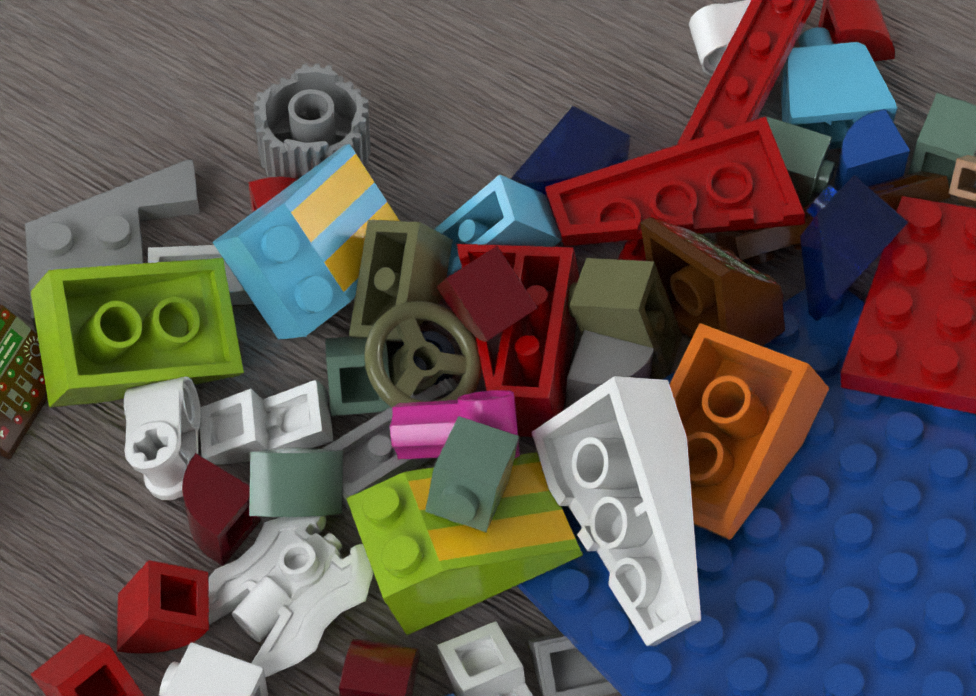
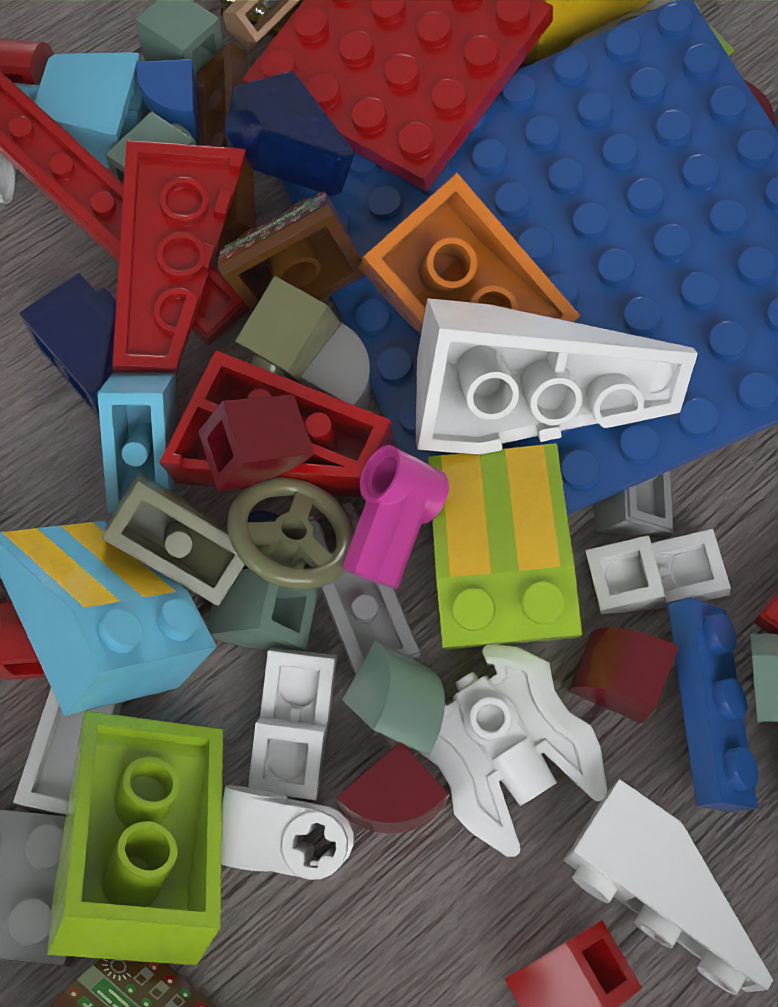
camera: 75 degrees left, 10 degrees up
(162, 609) = (503, 880): red brick -> none
(471, 474) = (477, 506): sand green brick -> none

